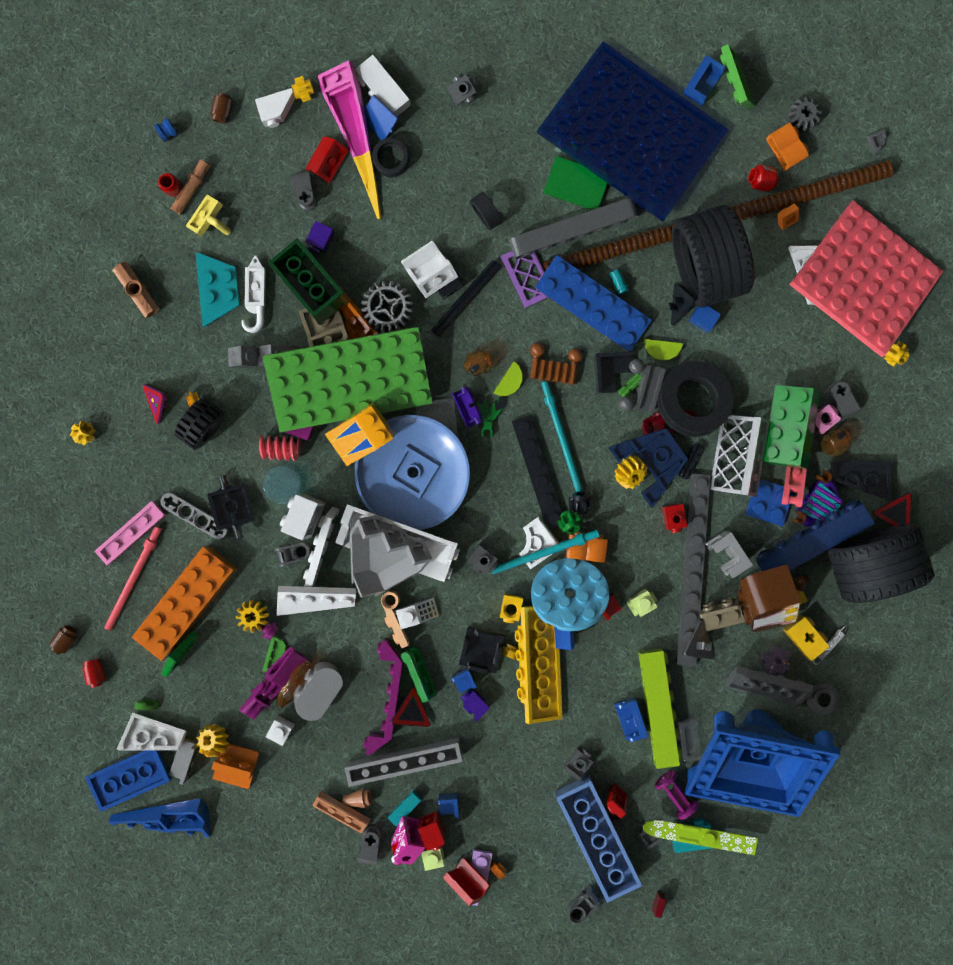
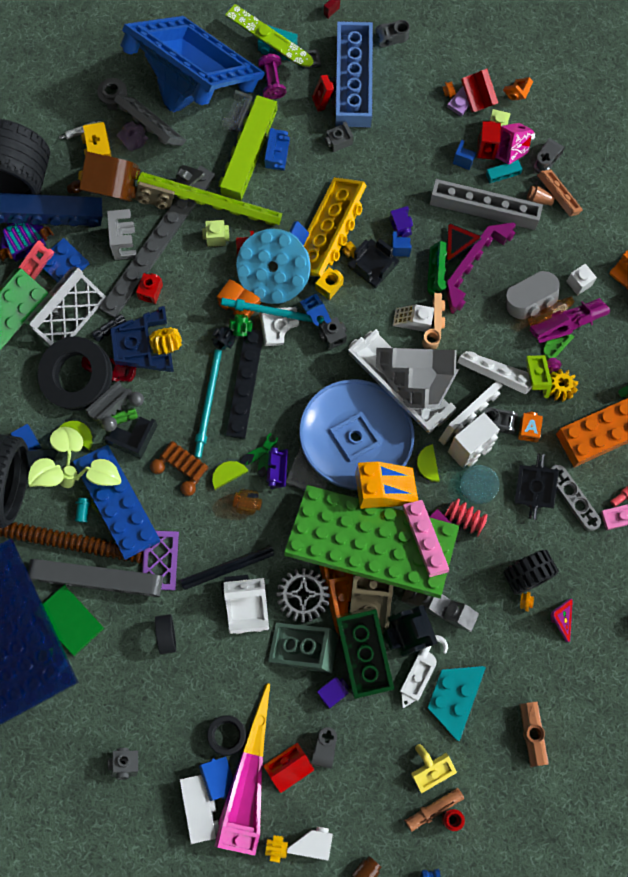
camera: 155 degrees left, 15 degrees down
(262, 561) = (530, 427): none -> orange brick
(275, 613) = (539, 374): none -> lime panel
(278, 320) = (410, 631): none -> black panel
(301, 402) = (425, 538): none -> bright pink plate
(338, 480) = (427, 464): none -> lime tile
(363, 262) = (304, 647): none -> sand green slope
(430, 905) = (519, 89): none -> orange bracket
(509, 571) = (314, 307): none -> blue hinge
(659, 284) = (46, 474): none -> yellowish green plant
(666, 633) = (217, 201): none -> lime plate

